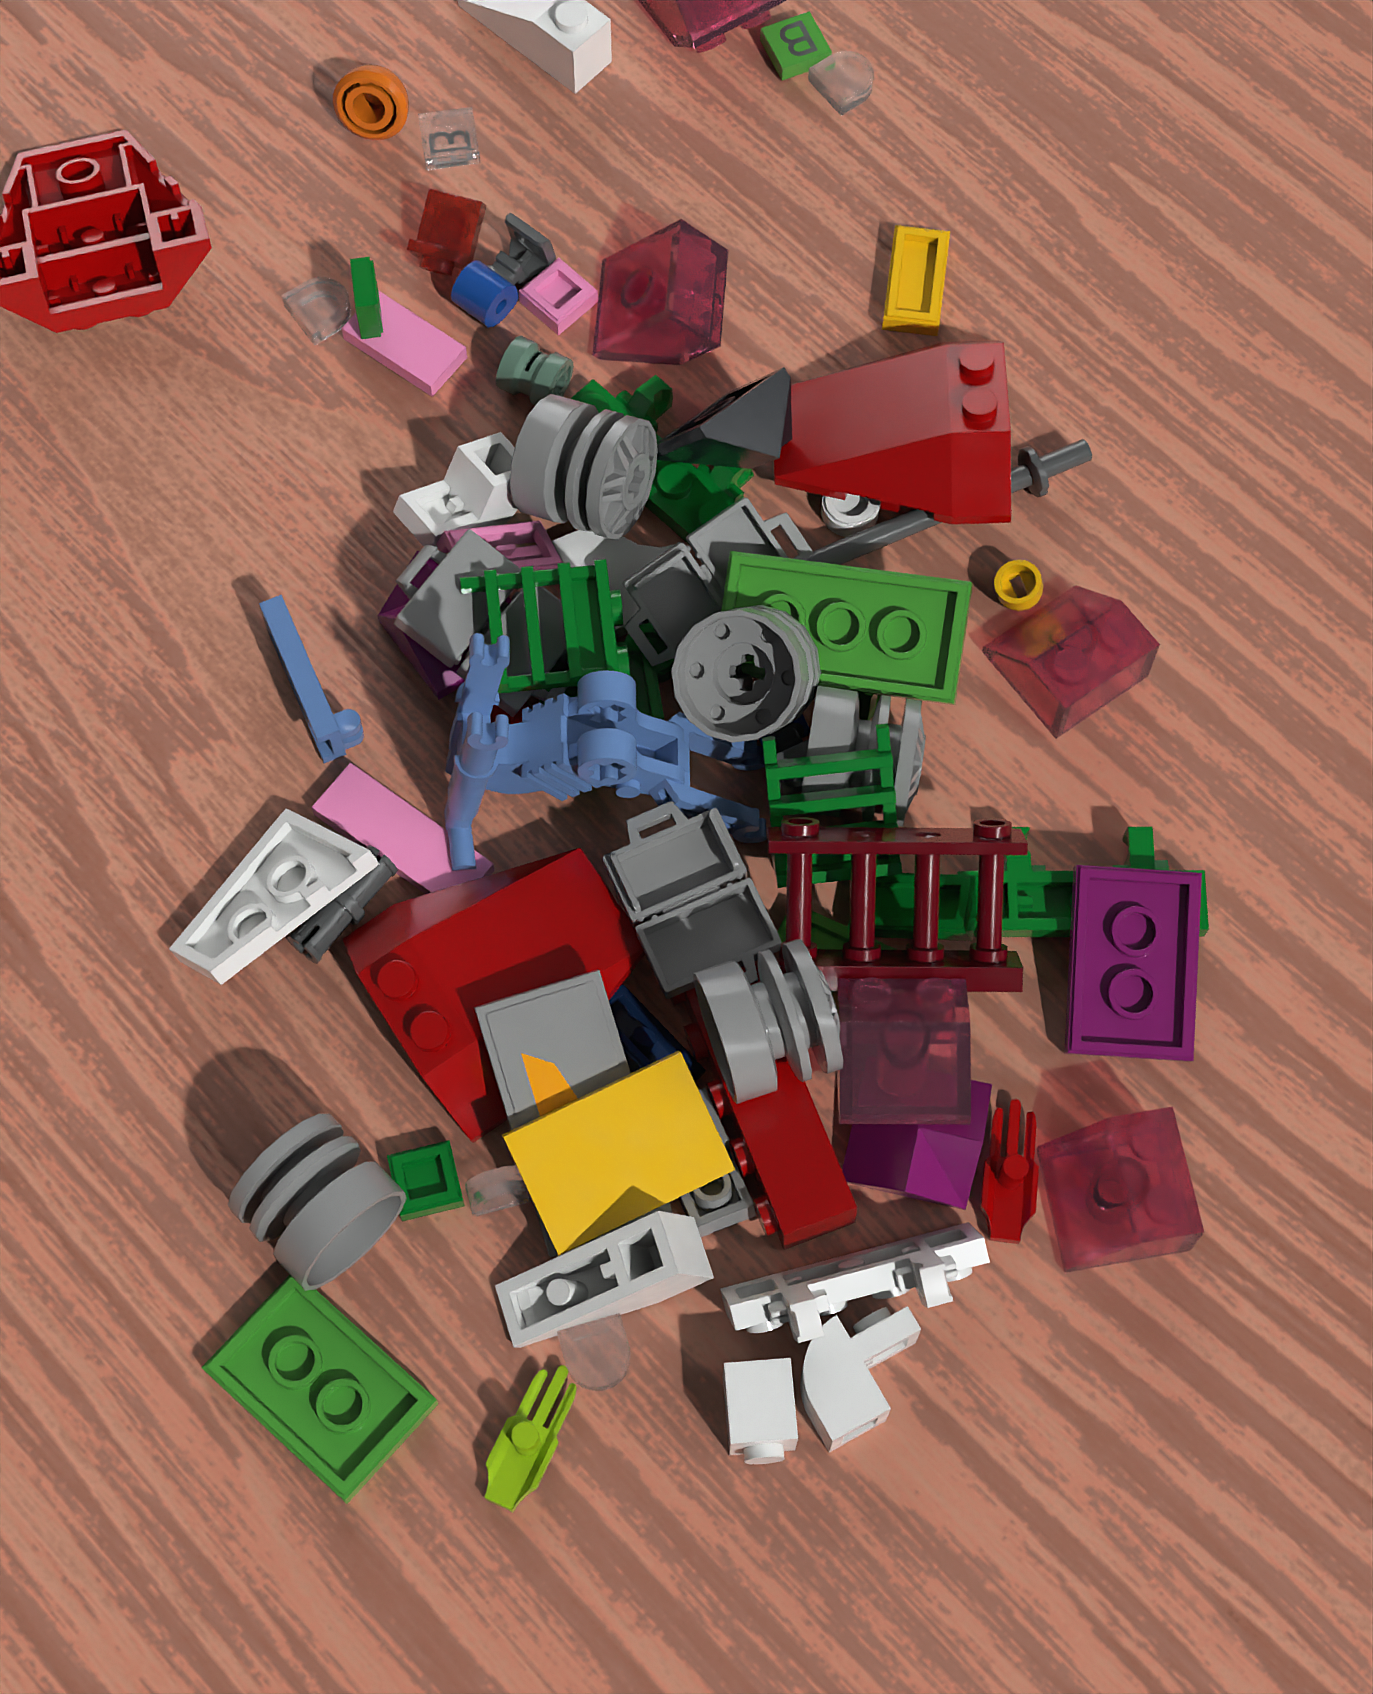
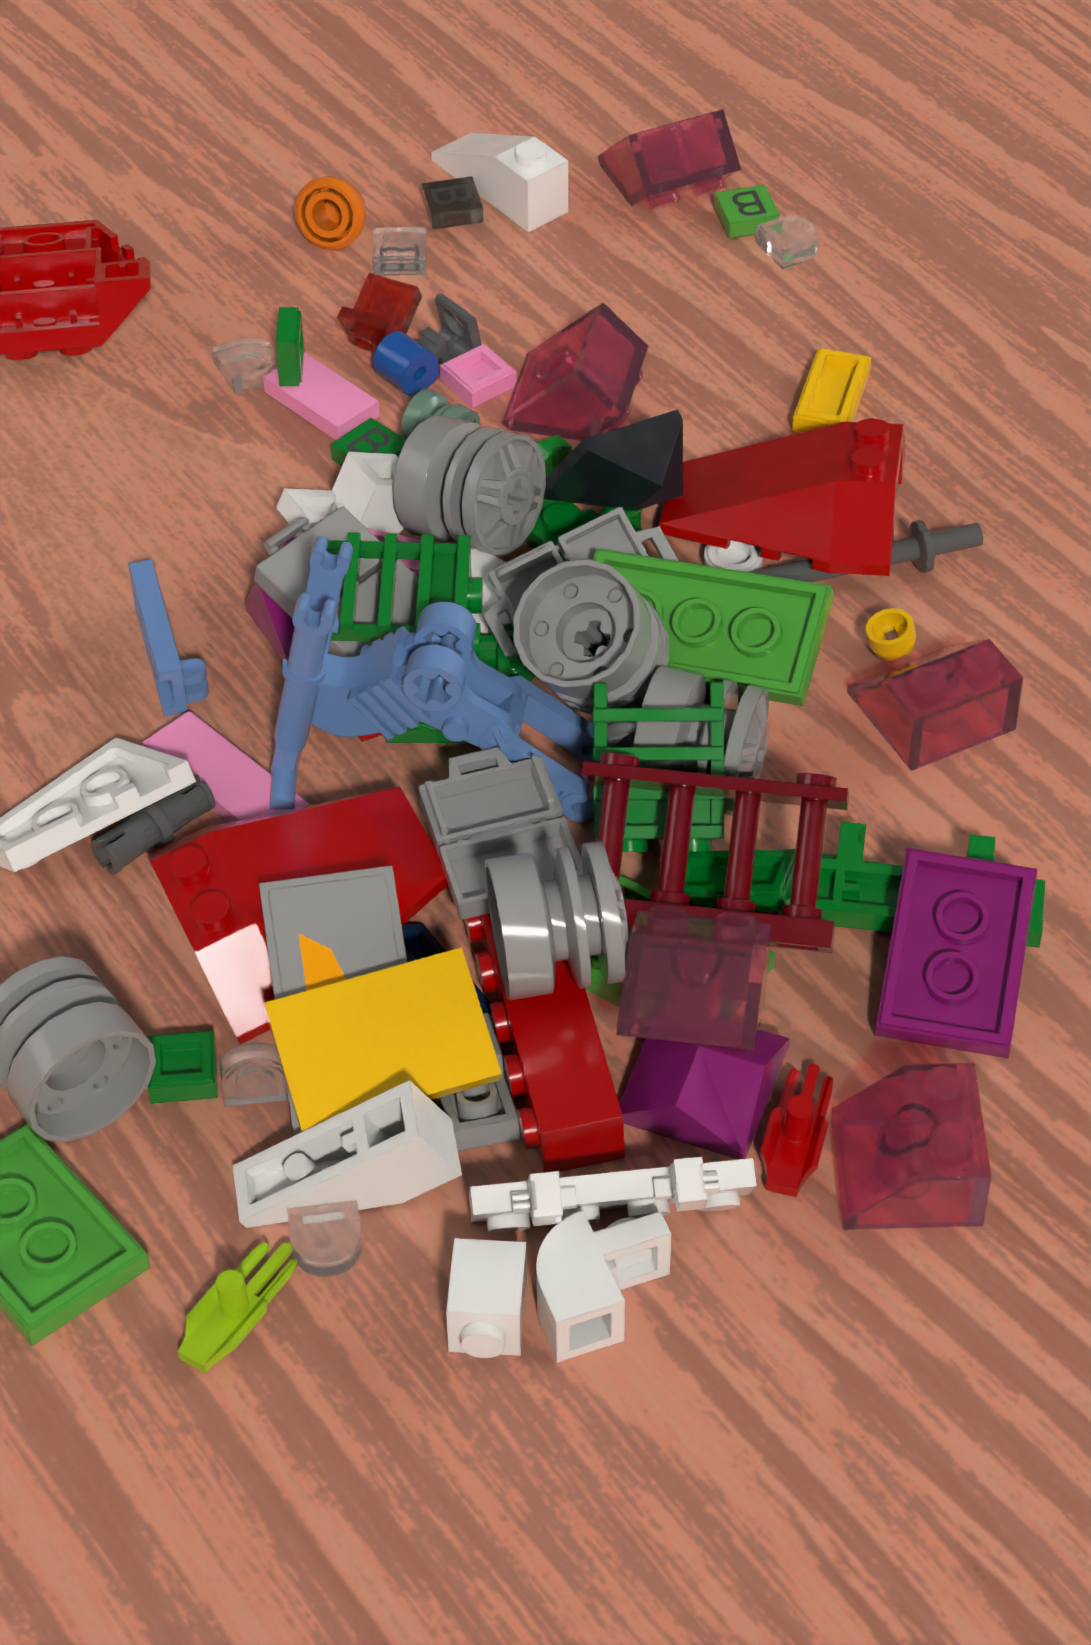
camera: 10 degrees right, 20 degrees down
(468, 408) = (367, 438): none -> green tile
(492, 66) = (452, 202): none -> clear smoke tile

